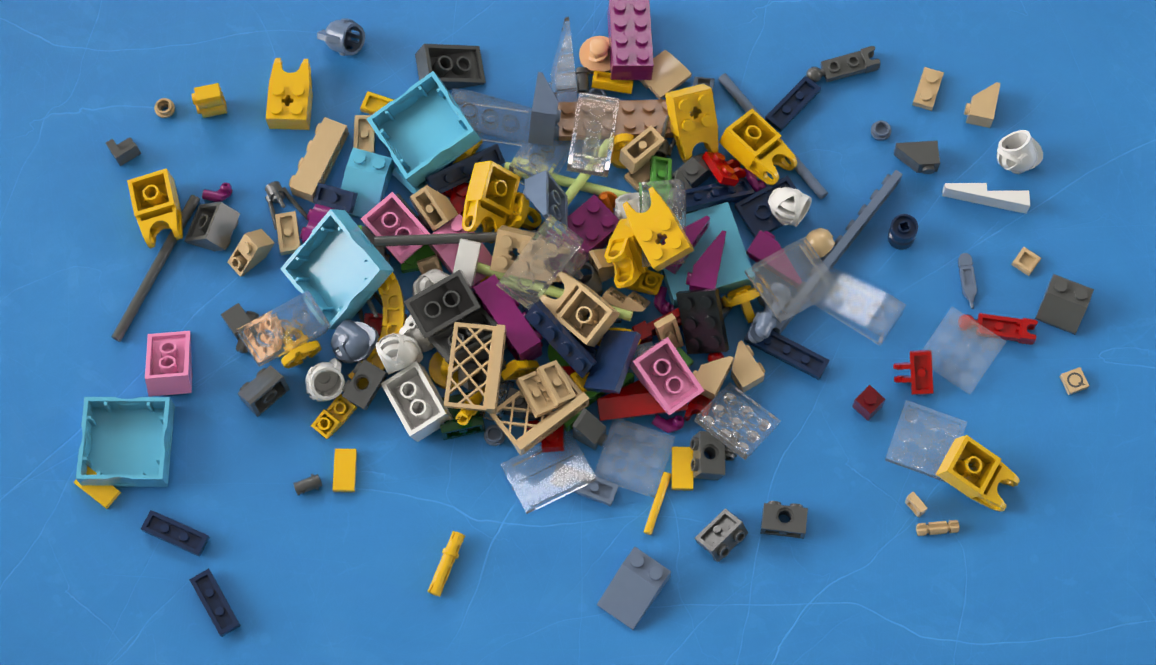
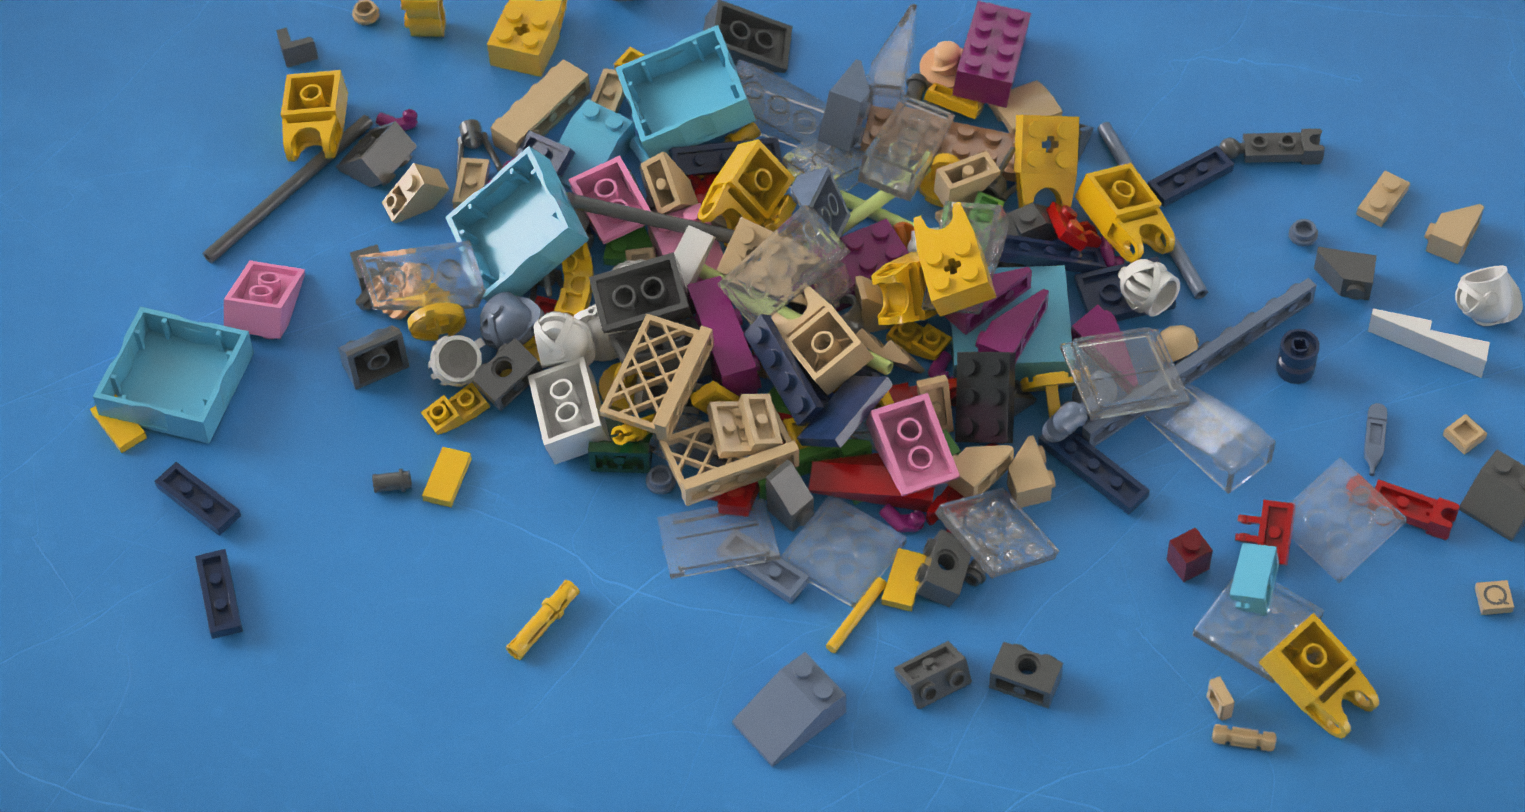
camera: 15 degrees right, 15 degrees down
(917, 412) = (1255, 578): none -> medium azure hinge

